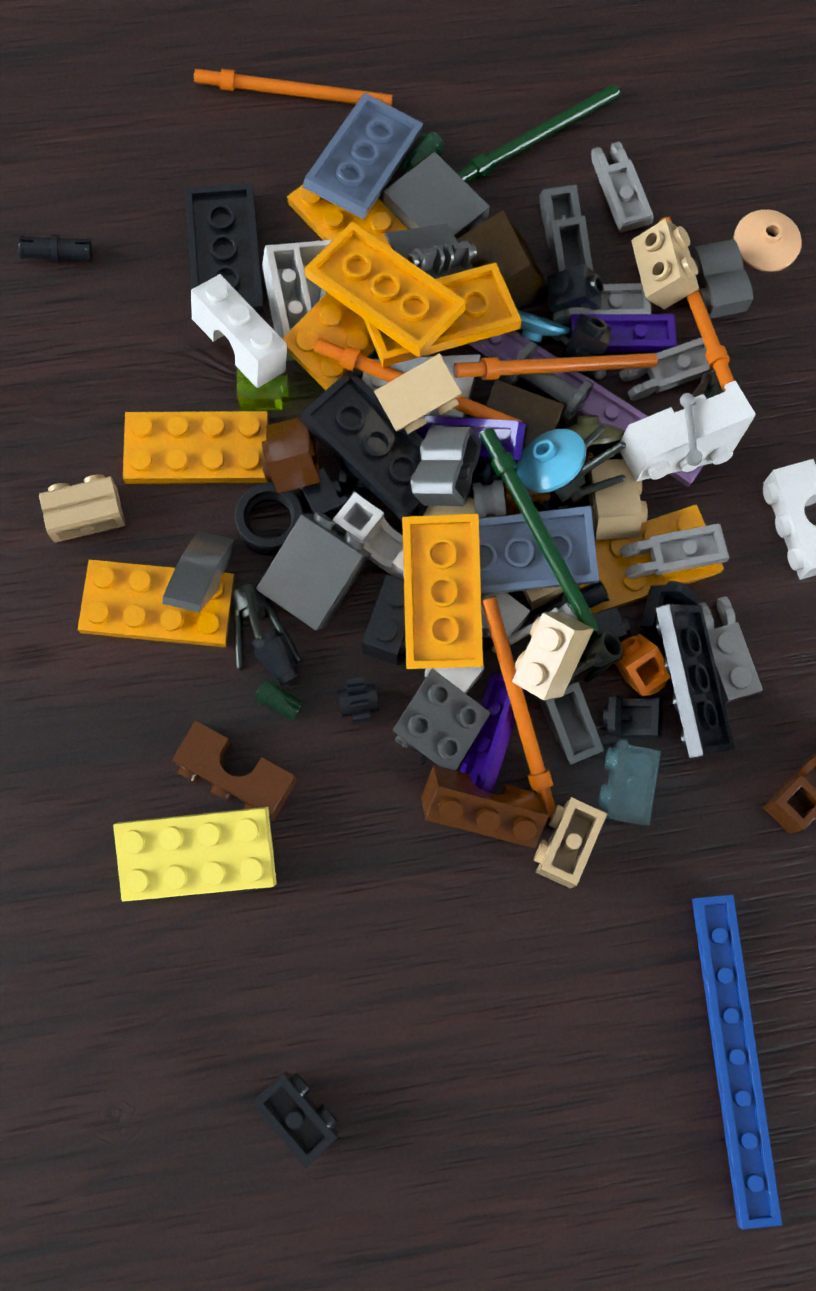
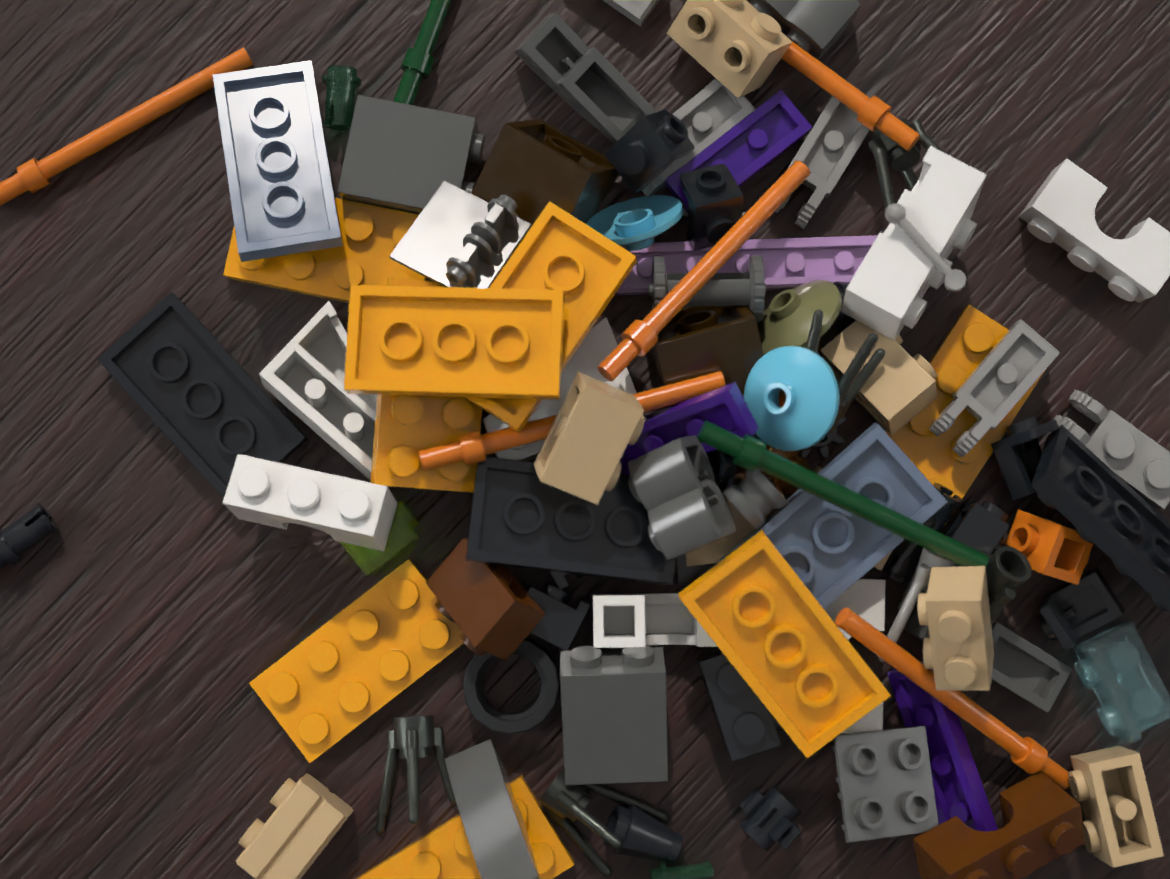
camera: 30 degrees left, 10 degrees up
(188, 508) = (414, 738): none -> pearl dark grey plant

